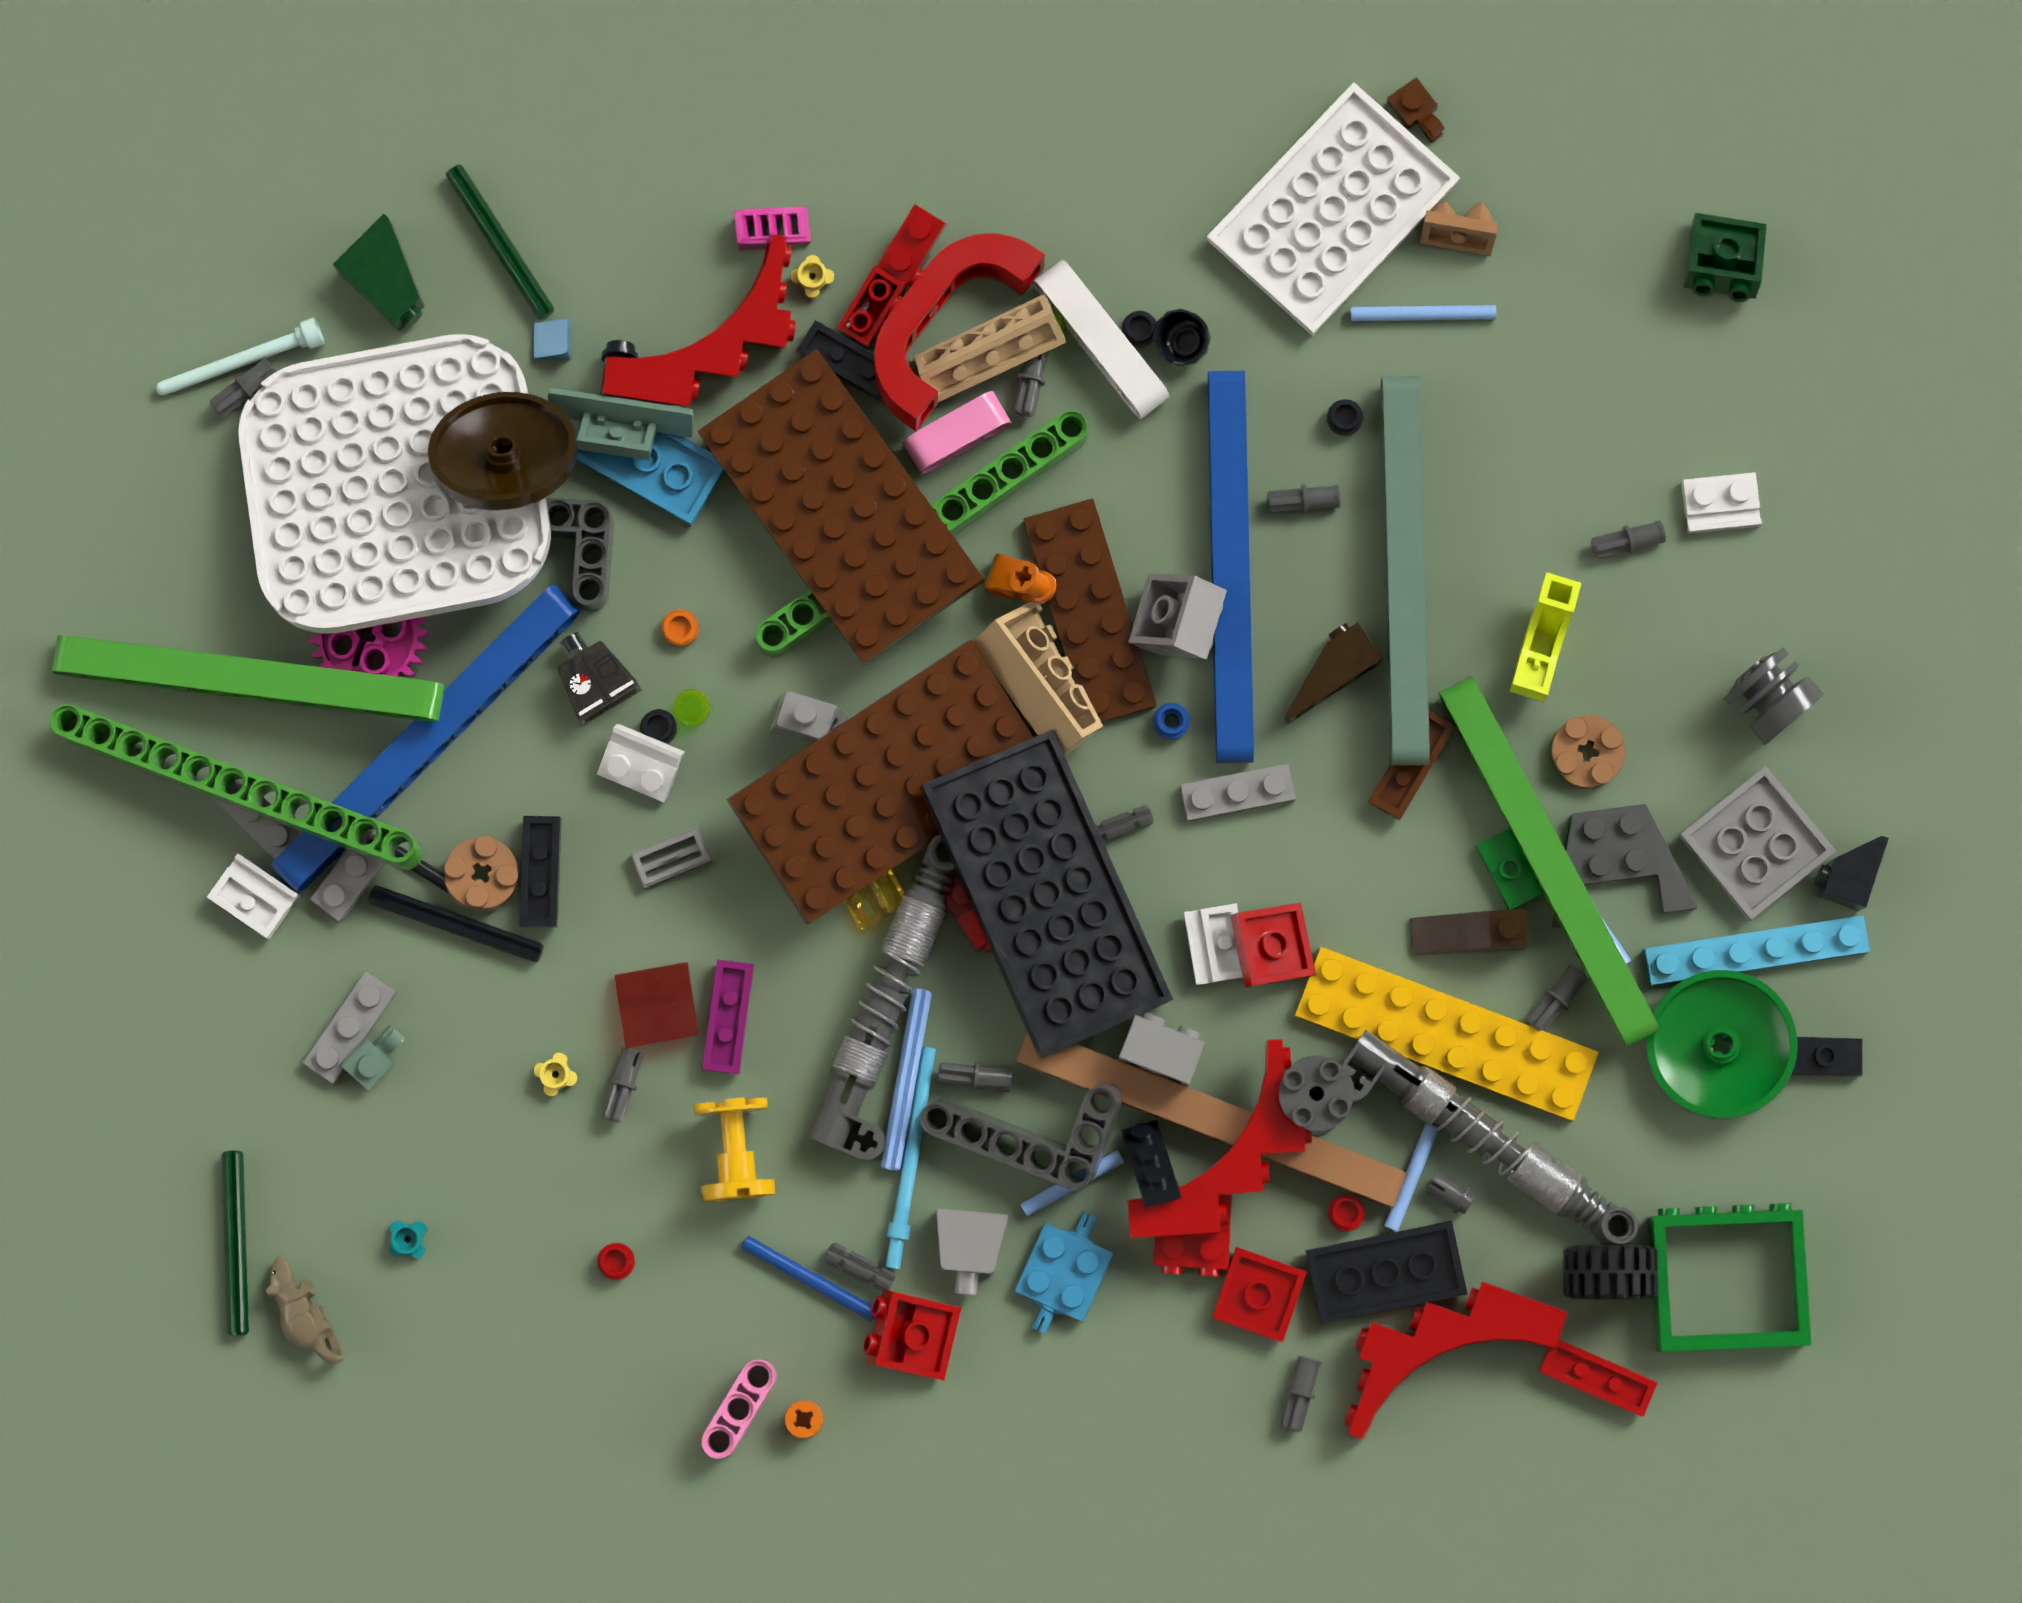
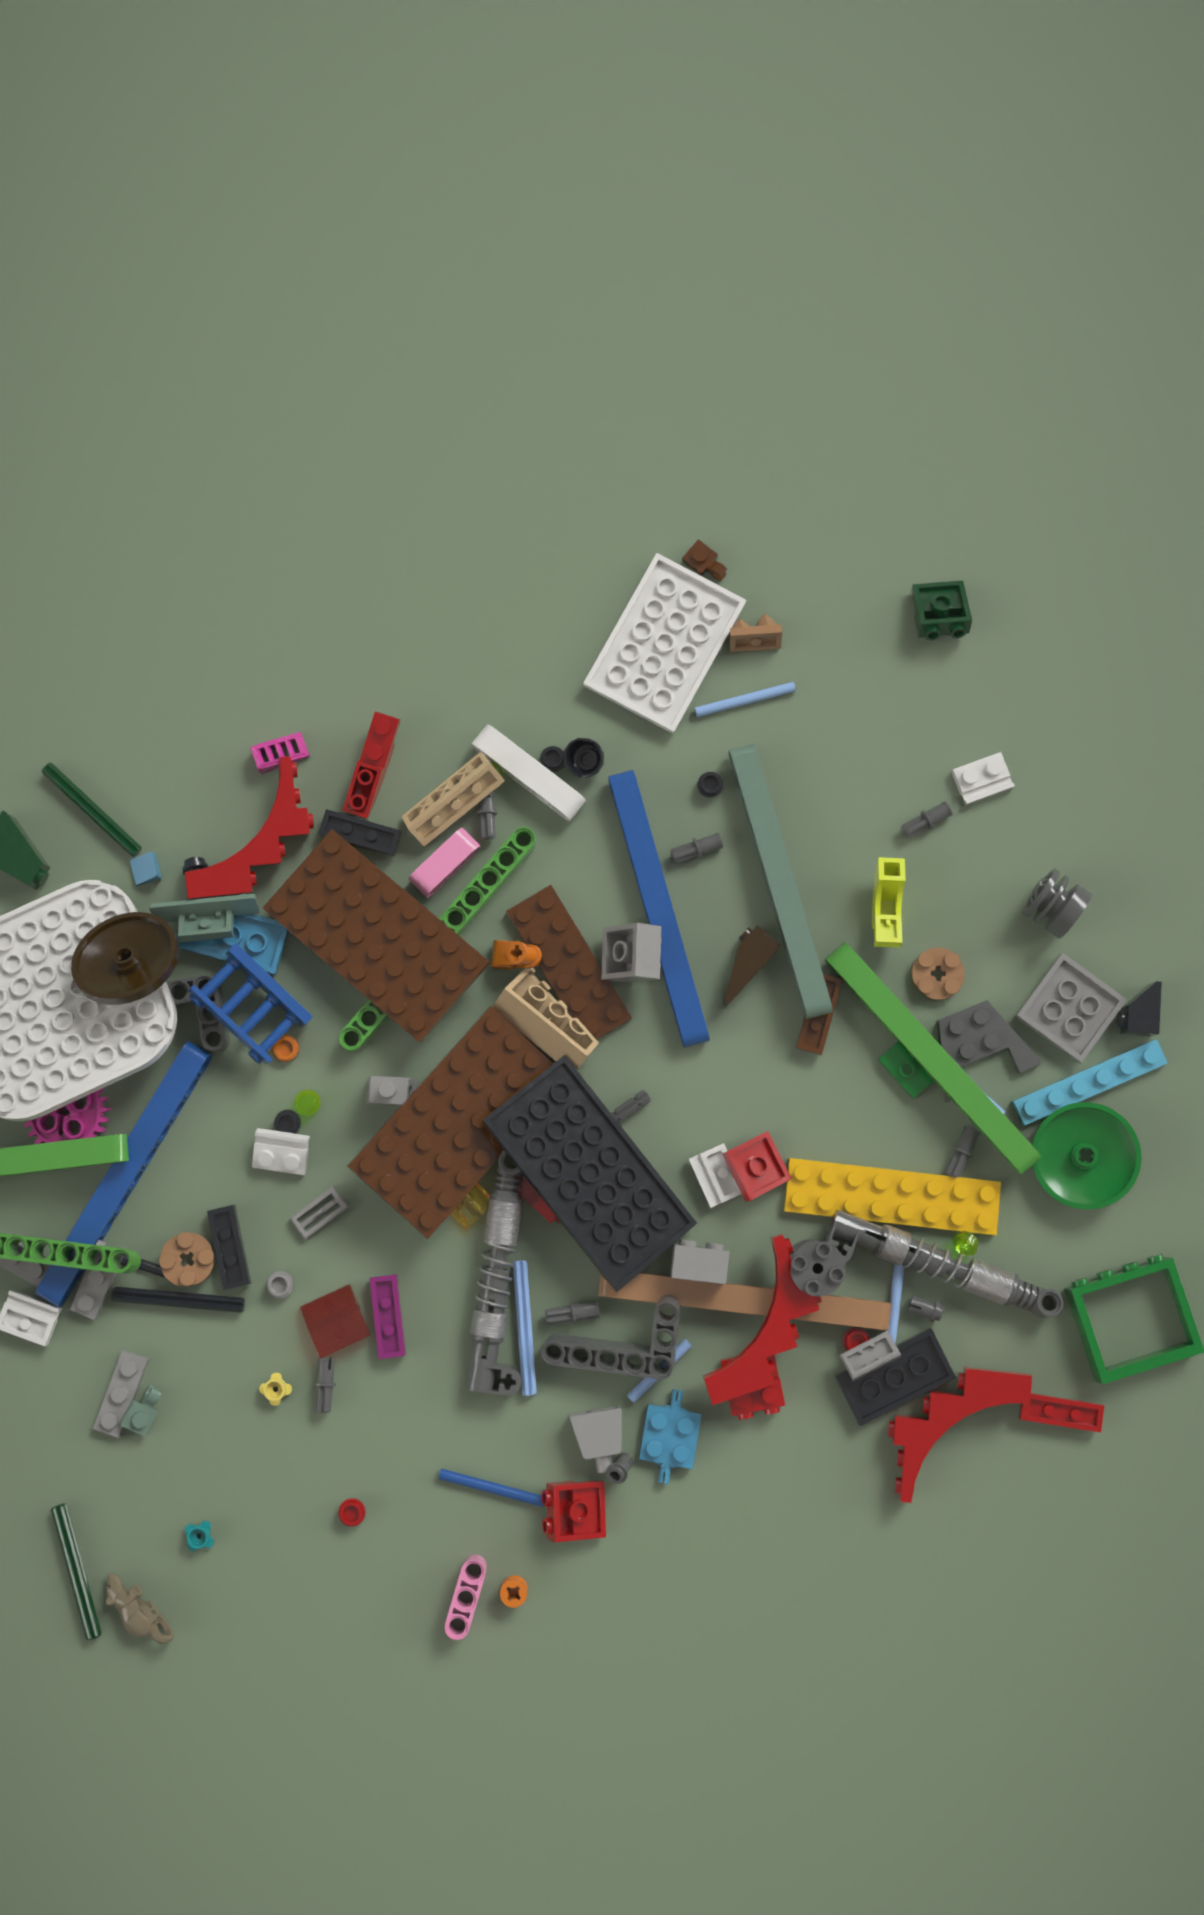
camera: 20 degrees left, 0 degrees up
(594, 678) = (233, 1100): clear smoke torso -> none
(595, 939) = (280, 1284): none -> light grey plate
(666, 523) = (275, 996): none -> blue fence
(736, 1164) = (420, 1422): yellow piece -> none
(812, 265) = (313, 772): light yellow plate -> none
(859, 1267) = (525, 1470): dark grey axle -> none
(898, 1230) = (546, 1436): medium azure bar -> none
(969, 258) = (428, 736): red arch -> none
(983, 1296) = (618, 1471): none -> dark grey pin
(1151, 1164) = (712, 1346): black plate -> none
(1175, 710) = (645, 1017): blue plate -> none
(1237, 792) = (704, 1064): light grey plate -> none
(1259, 1294) = (811, 1416): red plate -> none
(1300, 1394) = (857, 1479): dark grey axle -> none
(1358, 1233) = (870, 1355): none -> light grey plate
(1470, 932) = (890, 1121): dark brown slope -> none
(1528, 1120) = (966, 1243): none -> clear neon green plate
(1610, 1272) = (1053, 1338): black tyre -> none
(1828, 1056) = (1161, 1143): black plate -> none

